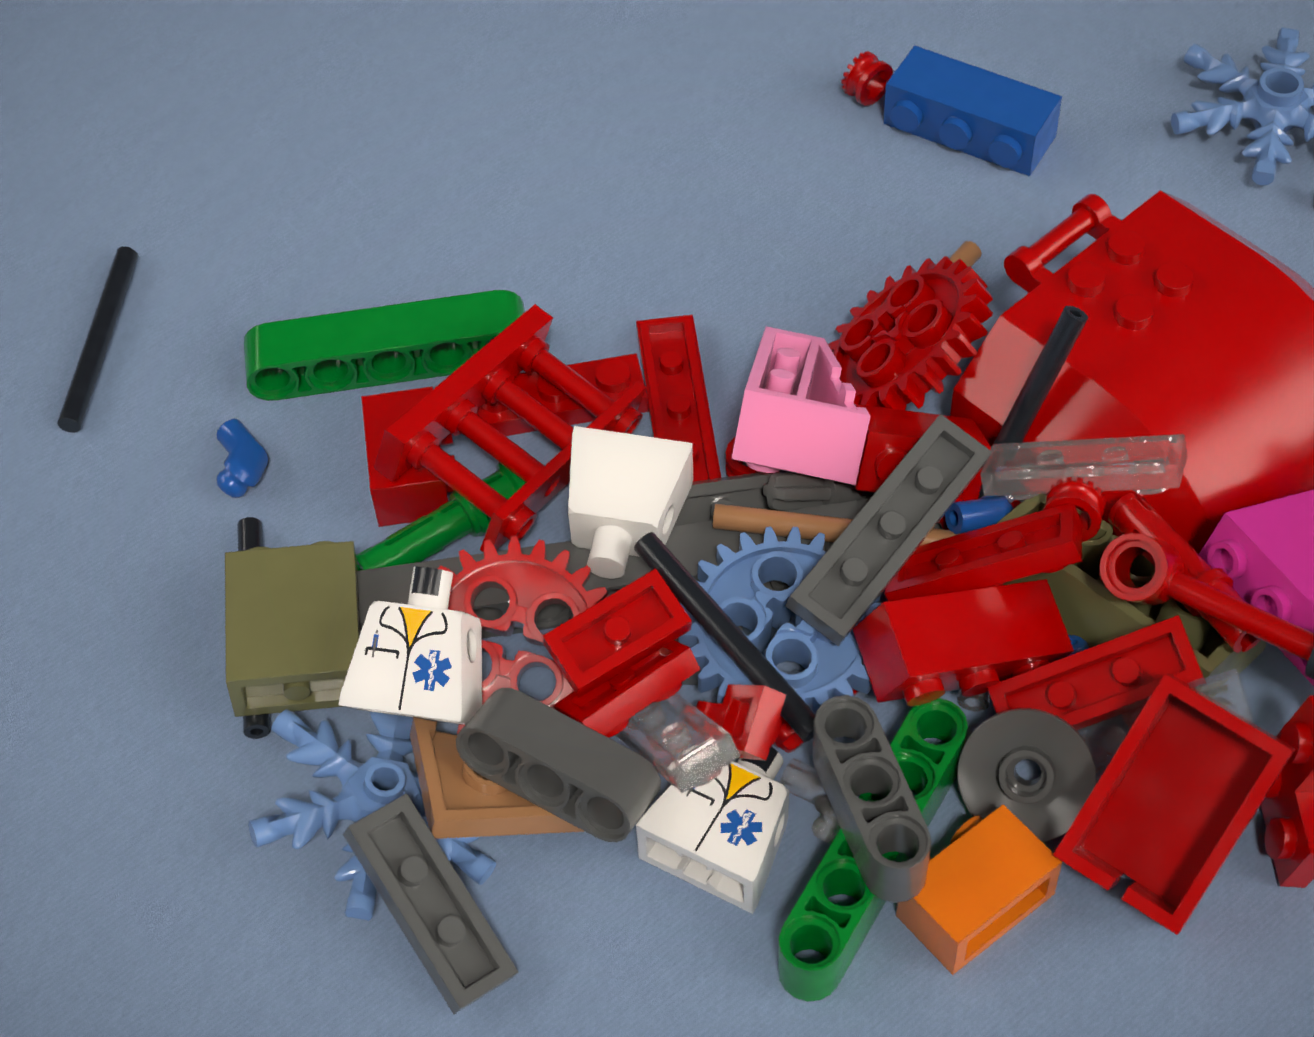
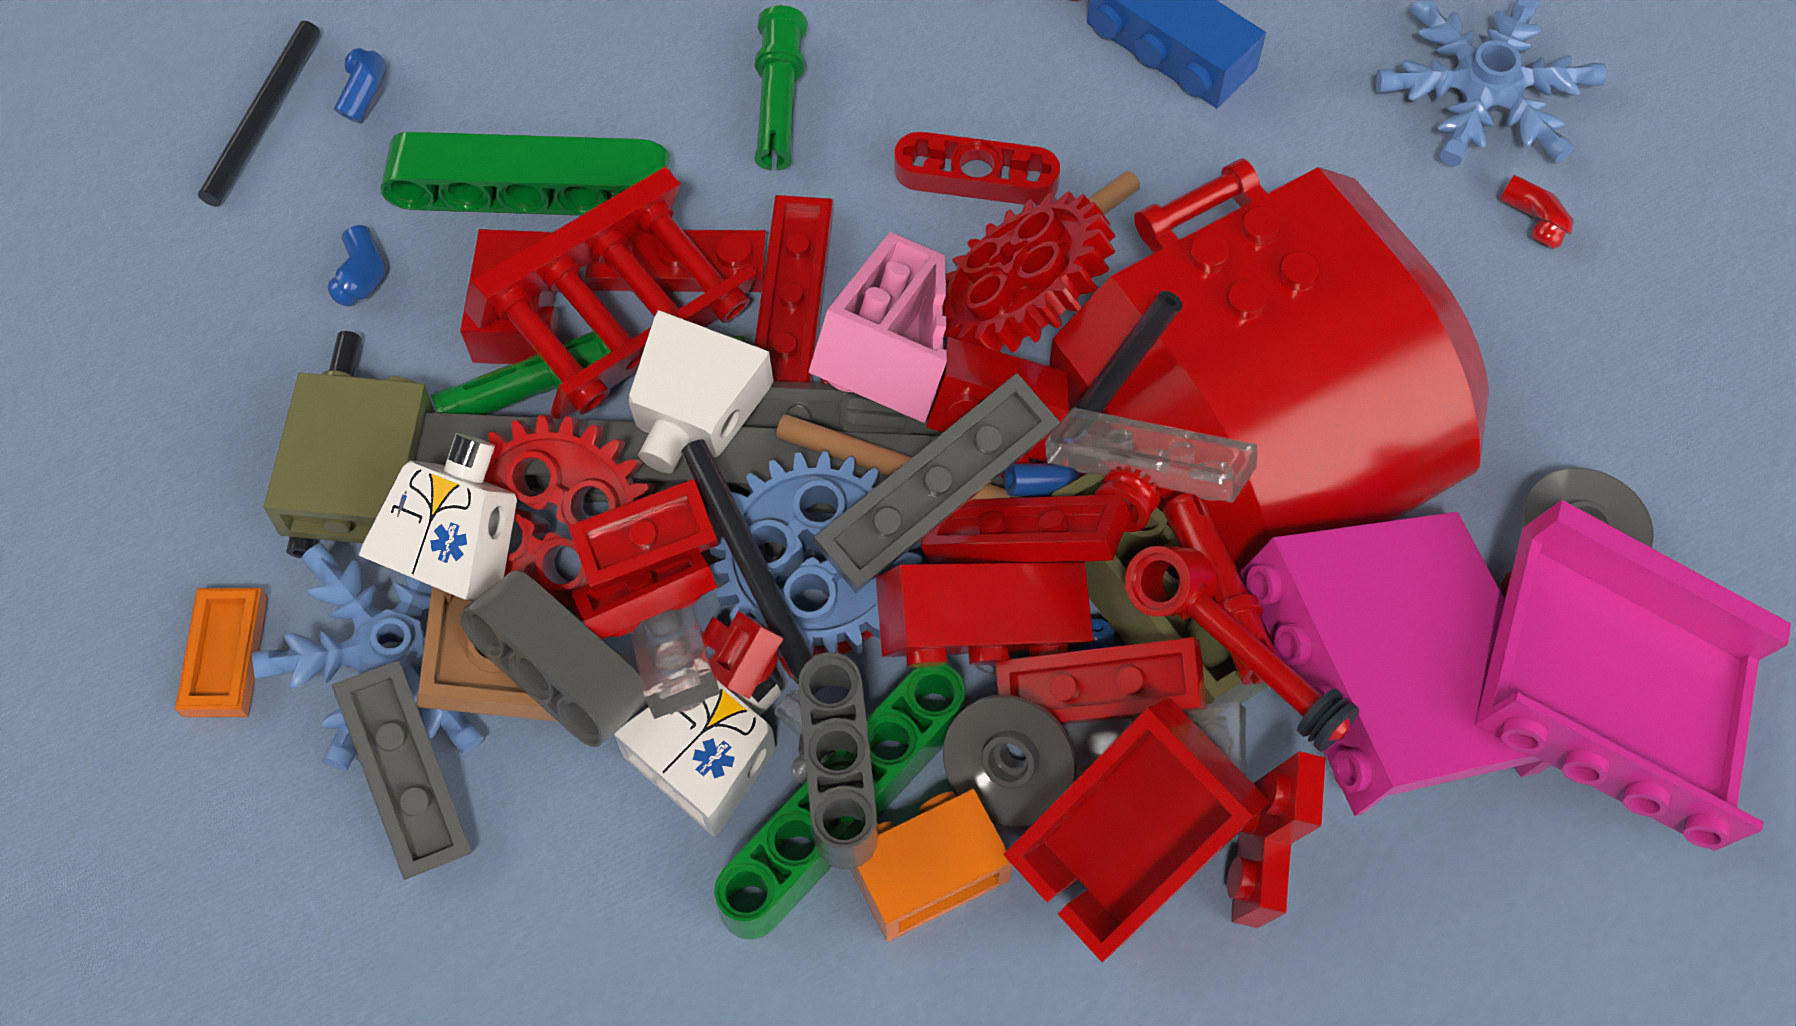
camera: 10 degrees right, 10 degrees up
(197, 285) = (366, 74): none -> blue arm
(203, 840) = (218, 653): none -> orange tile
(605, 206) = (779, 66): none -> green pin
(804, 280) = (963, 149): none -> red beam

